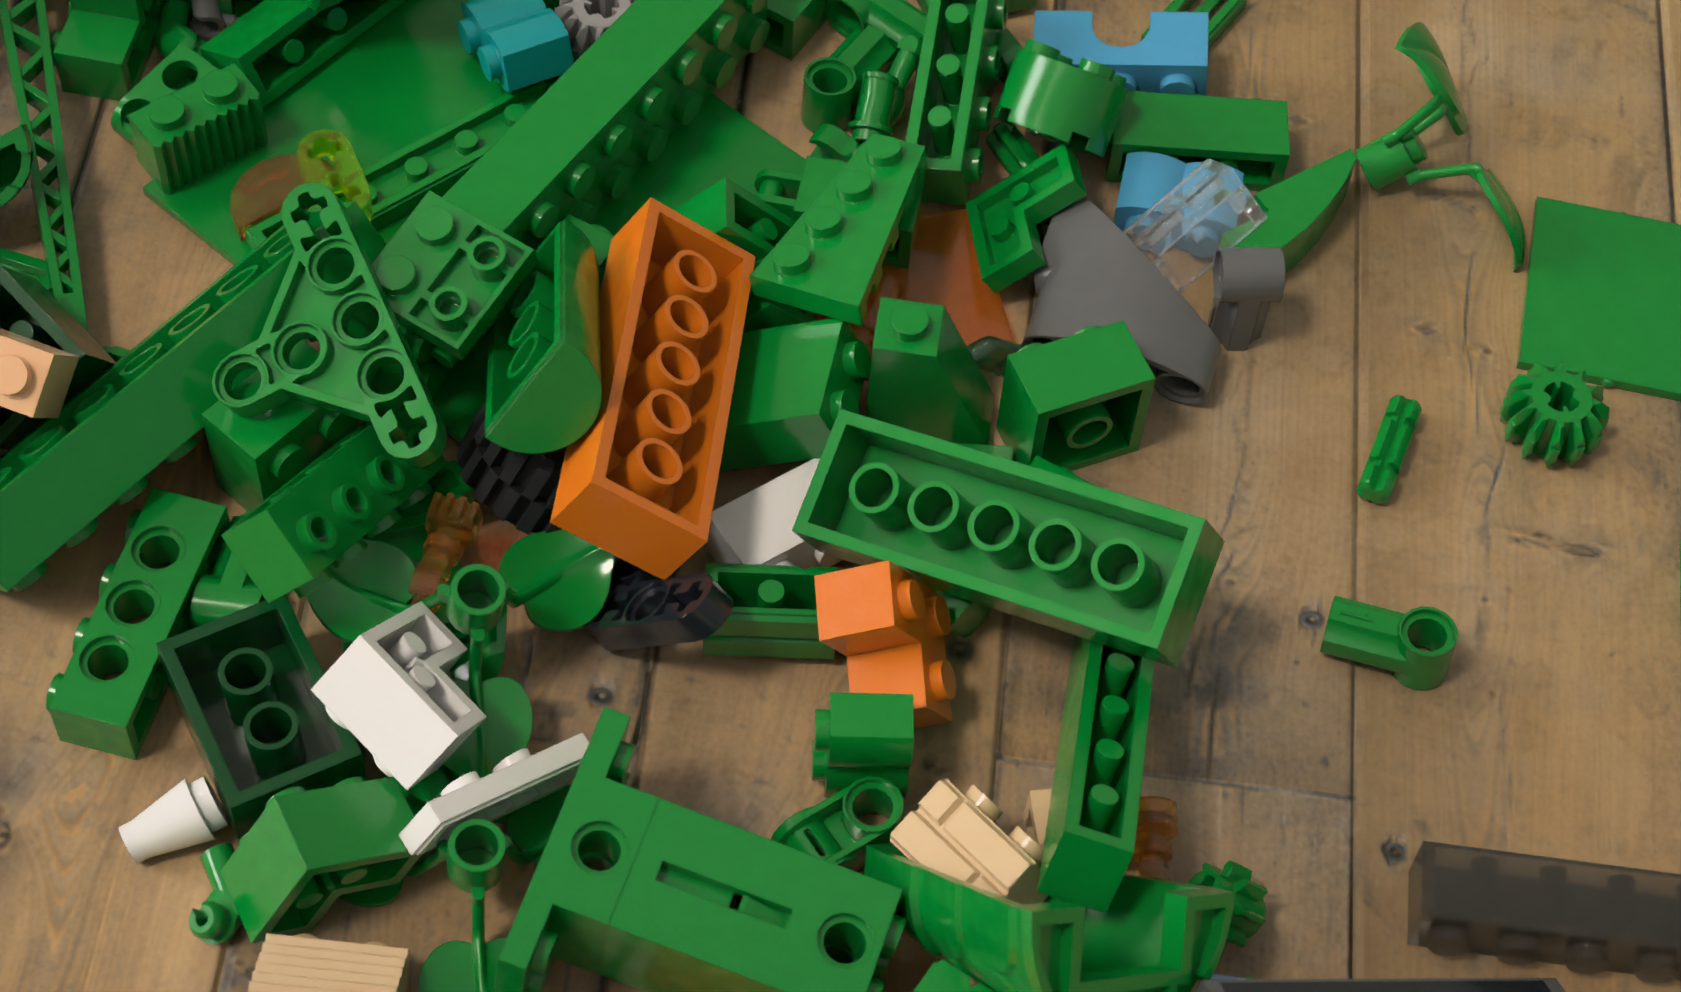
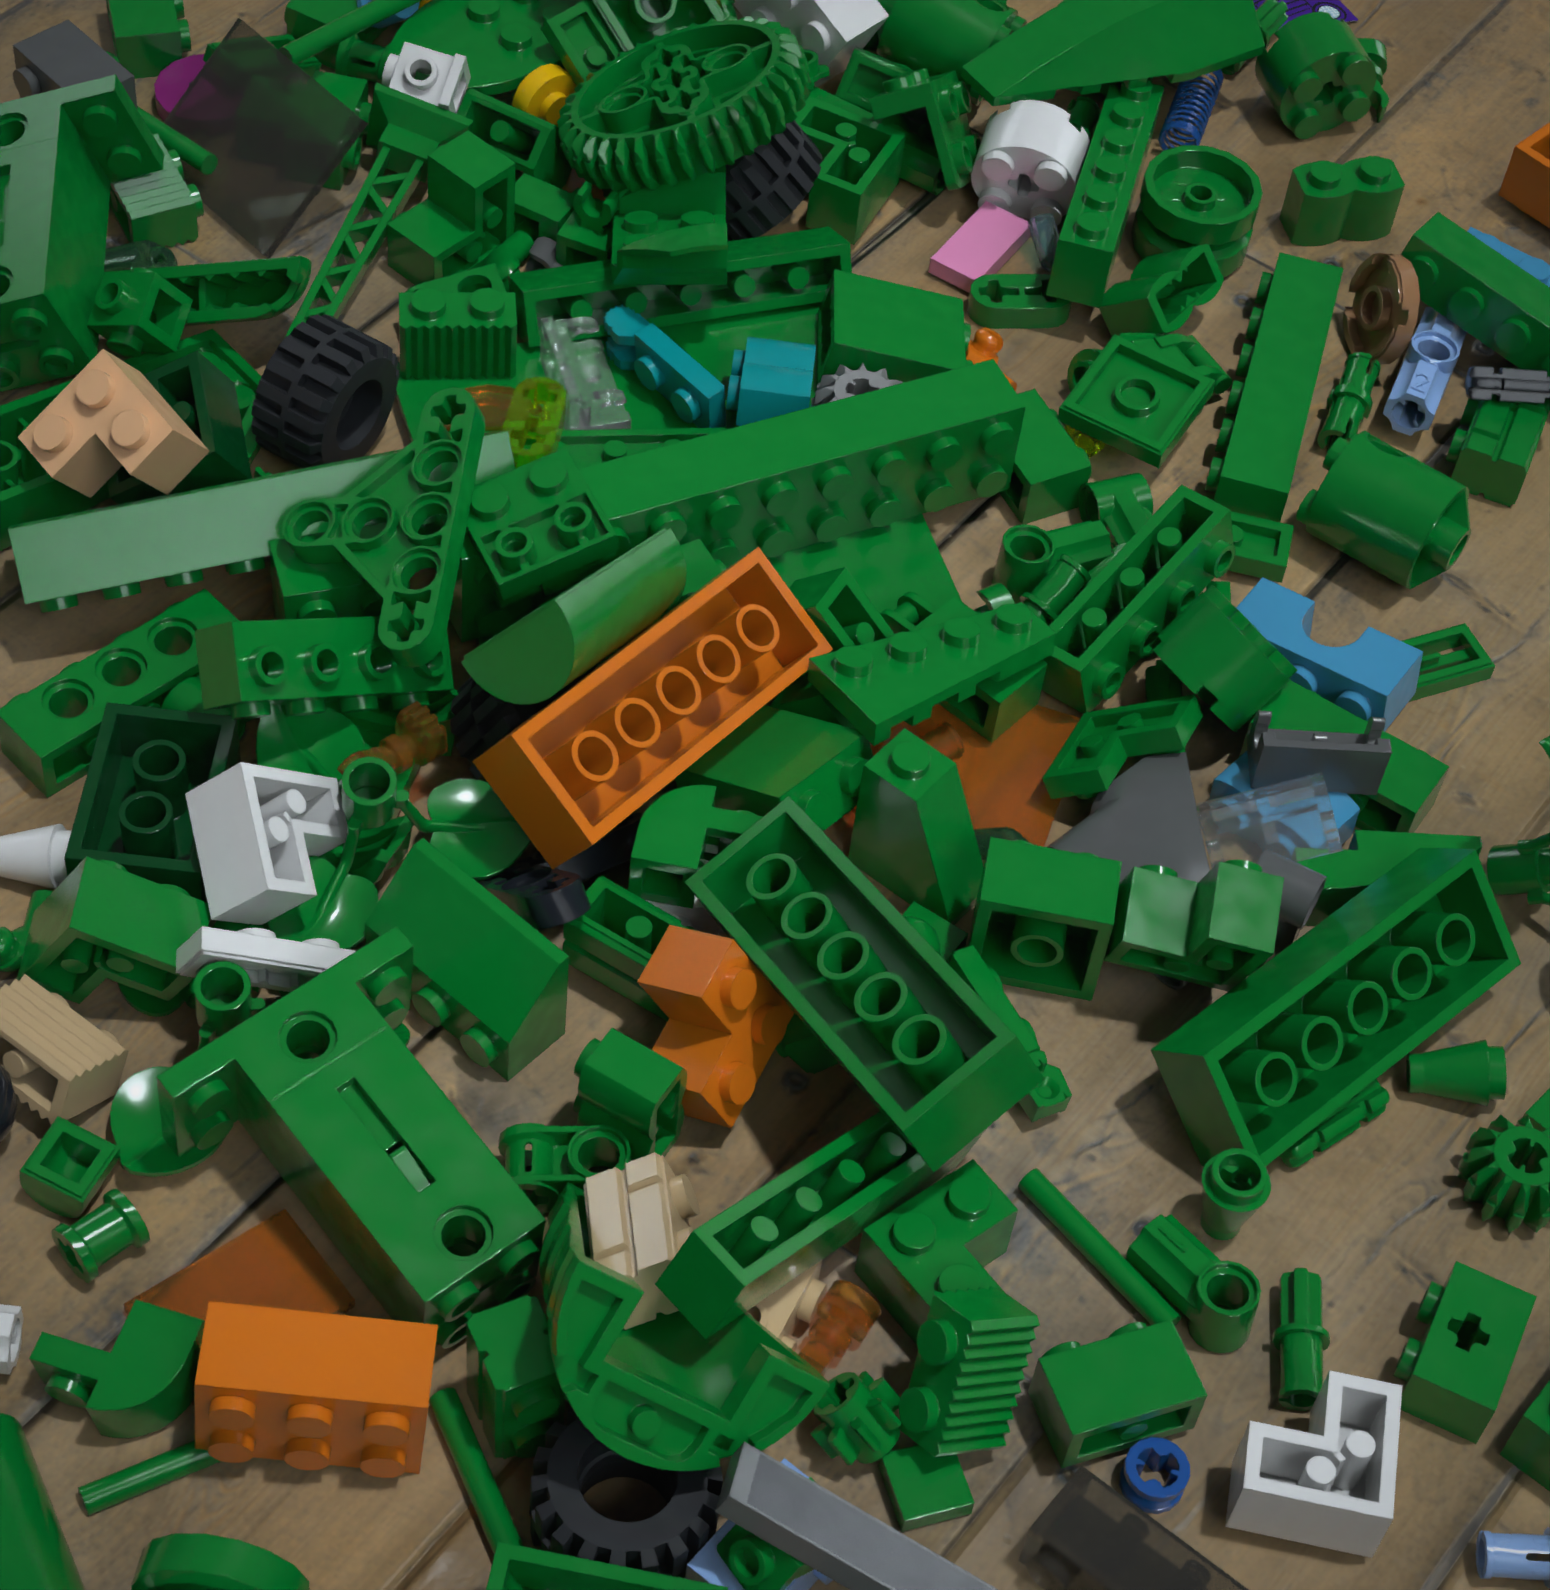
camera: 30 degrees right, 5 degrees down
(128, 248) = (324, 393): none -> black tyre
(328, 105) = (584, 374): none -> clear hinge
(406, 68) = (665, 367): none -> teal hinge
(679, 692) = (474, 962): none -> green slope
(757, 492) = (677, 839): none -> green brick
(1176, 152) = (1347, 760): none -> dark grey hinge
(1199, 755) = (936, 1244): none -> green brick
(1218, 338) = (1197, 930): none -> green brick
(1292, 816) = (967, 1371): none -> green brick
(1294, 657) = (1097, 1249): none -> green bar
(1303, 926) = (925, 1487): none -> green tile
(1347, 355) = (1338, 1006): none -> green brick
(1372, 550) = (1232, 1191): none -> green cone
(1397, 765) = (1116, 1391): none -> green brick
(1447, 802) = (1158, 1455): none -> blue bush
(1458, 354) = (1459, 1072): none -> green cone
(1491, 641) = (1300, 1339): none -> green axle
(1598, 735) = (1327, 1483): none -> white brick
(1614, 581) = (1465, 1350): none -> green brick

